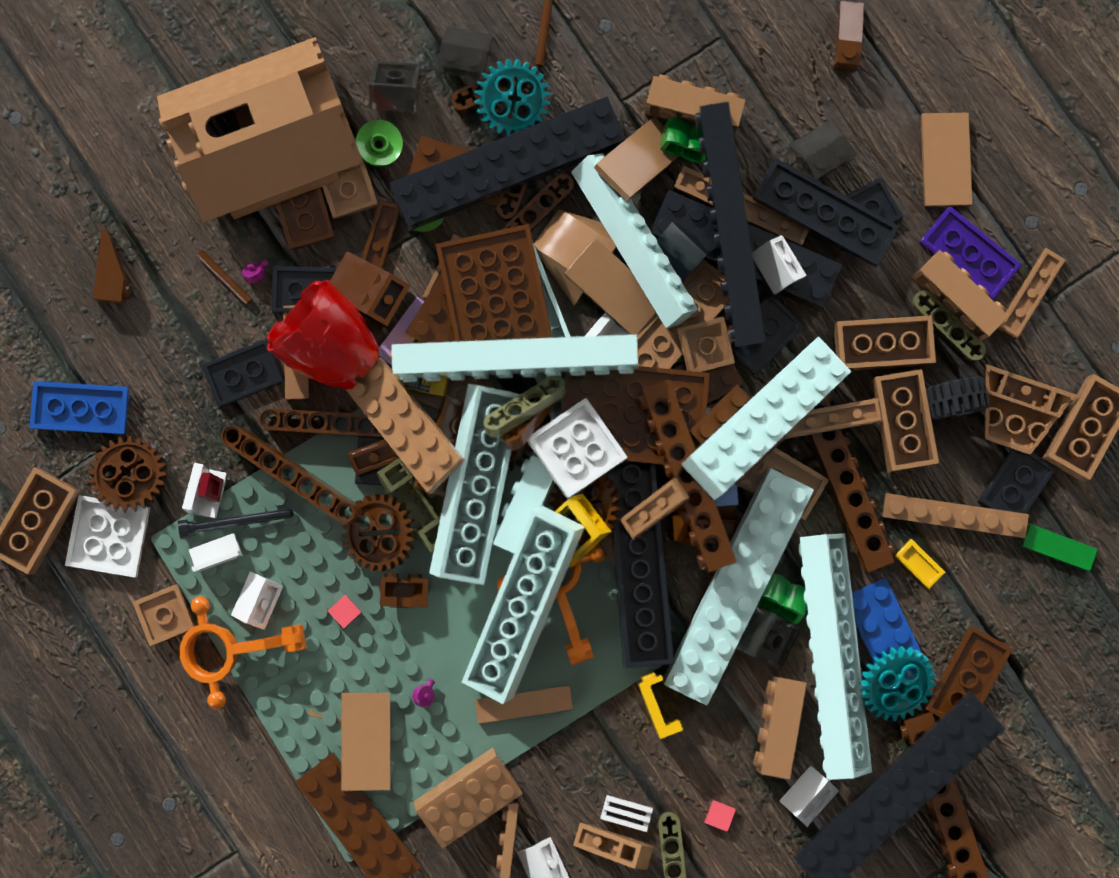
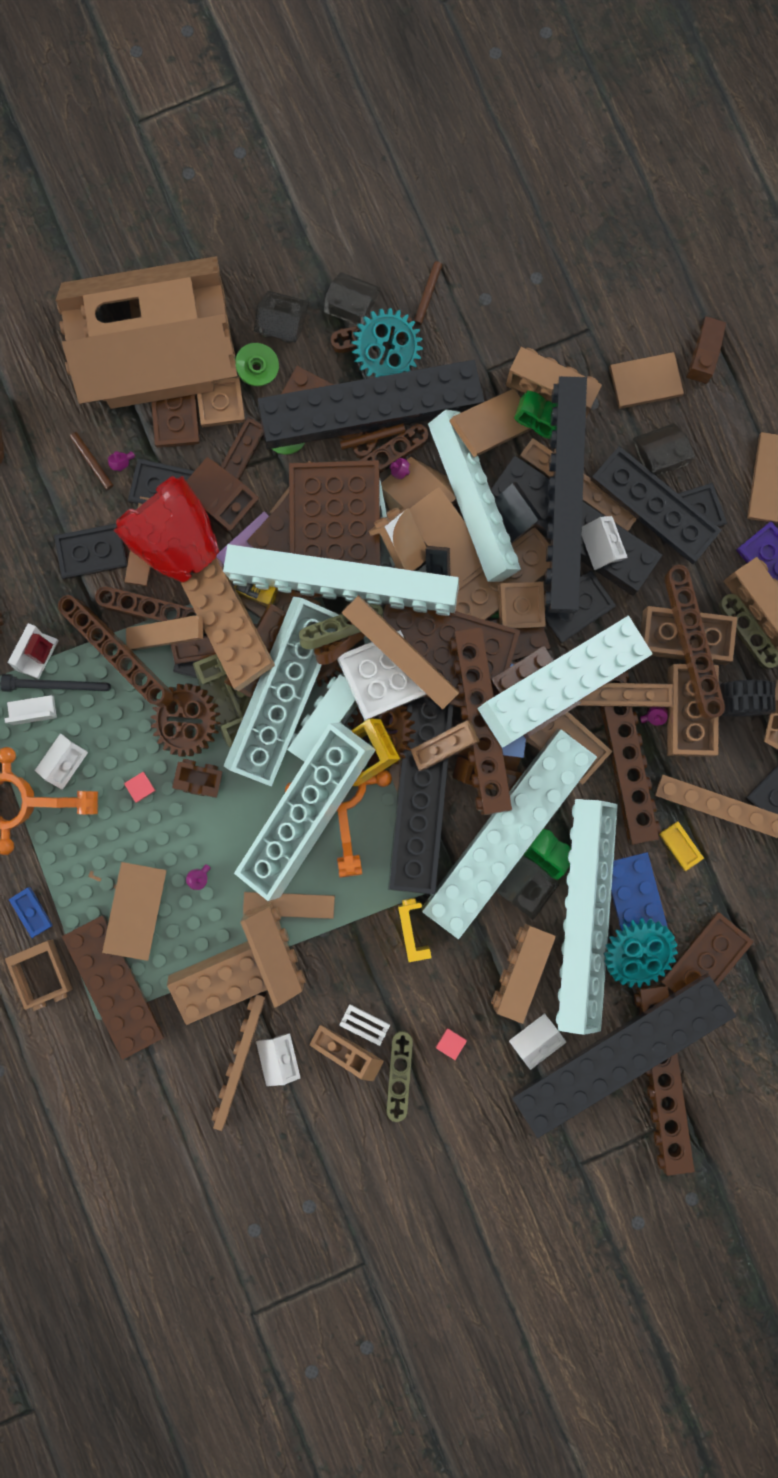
camera: 10 degrees right, 0 degrees up
(256, 764) = (30, 912): none -> blue plate
(284, 856) = (13, 963): none -> medium nougat window
(340, 446) = (164, 633): none -> medium nougat tile
(515, 196) = (373, 436): none -> reddish brown bar
(517, 756) = (272, 953): none -> medium nougat slope
(551, 225) = (400, 468): none -> magenta piece
(569, 302) = (401, 538): none -> medium nougat panel
(591, 421) = (400, 652): none -> medium nougat tile
(610, 318) = (438, 560): none -> black plate
(791, 81) = (646, 380): none -> medium nougat tile
(867, 433) = (655, 716): none -> magenta piece
(891, 339) = (691, 653): none -> reddish brown beam

